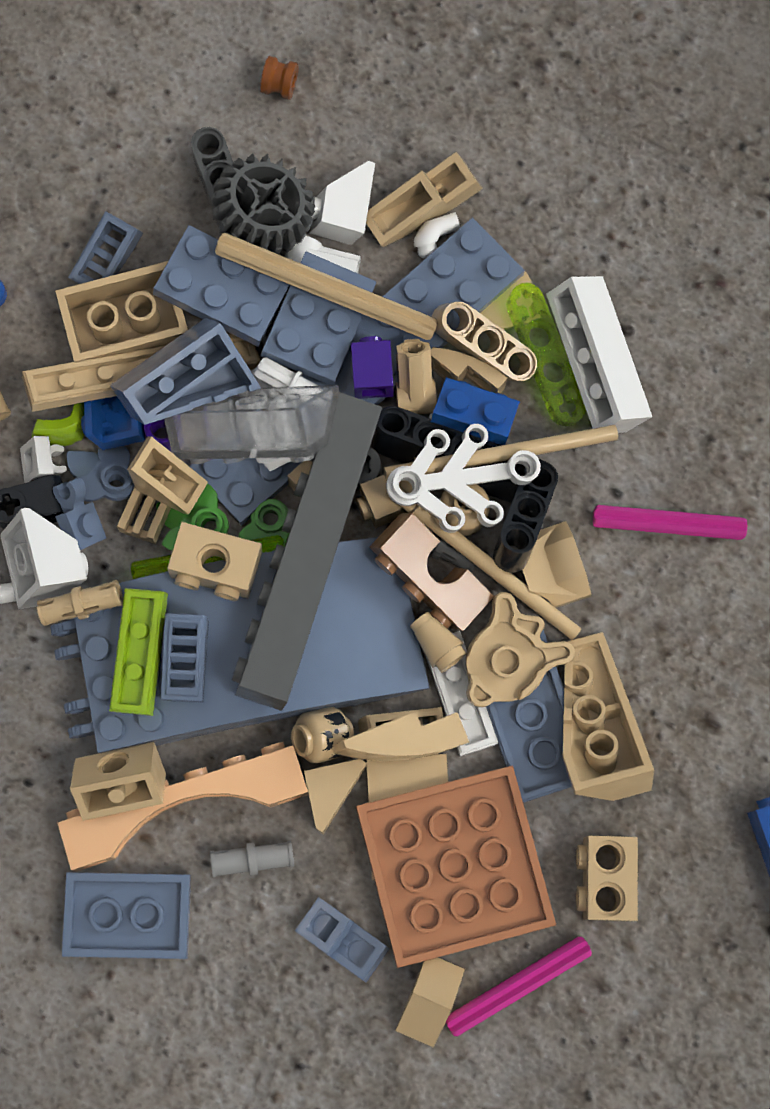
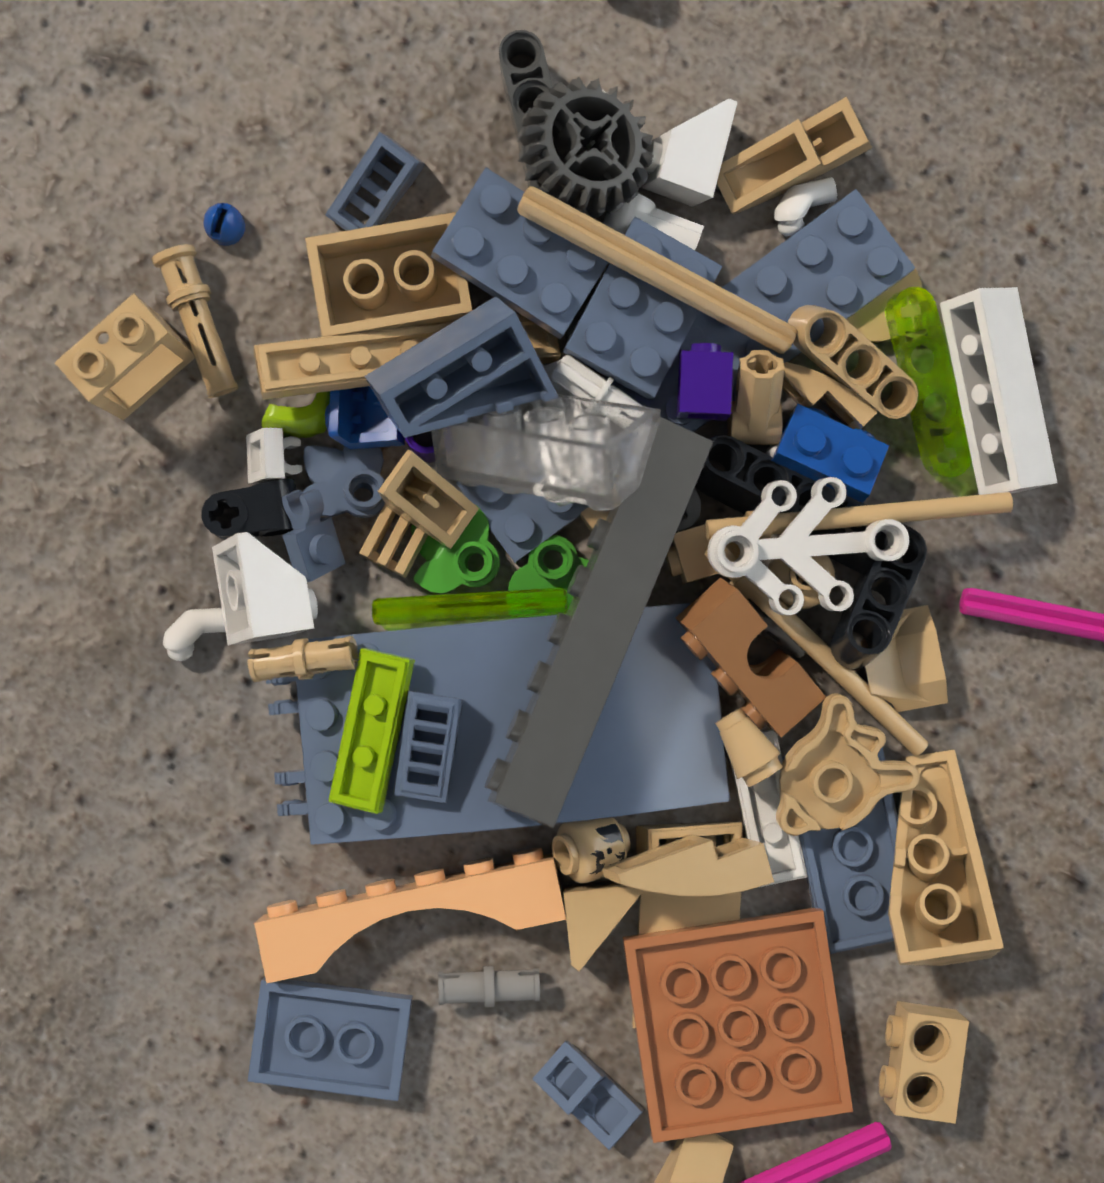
camera: 15 degrees right, 10 degrees up
(118, 781) = (333, 883): tan brick -> none
(198, 544) = (454, 605): tan brick -> none

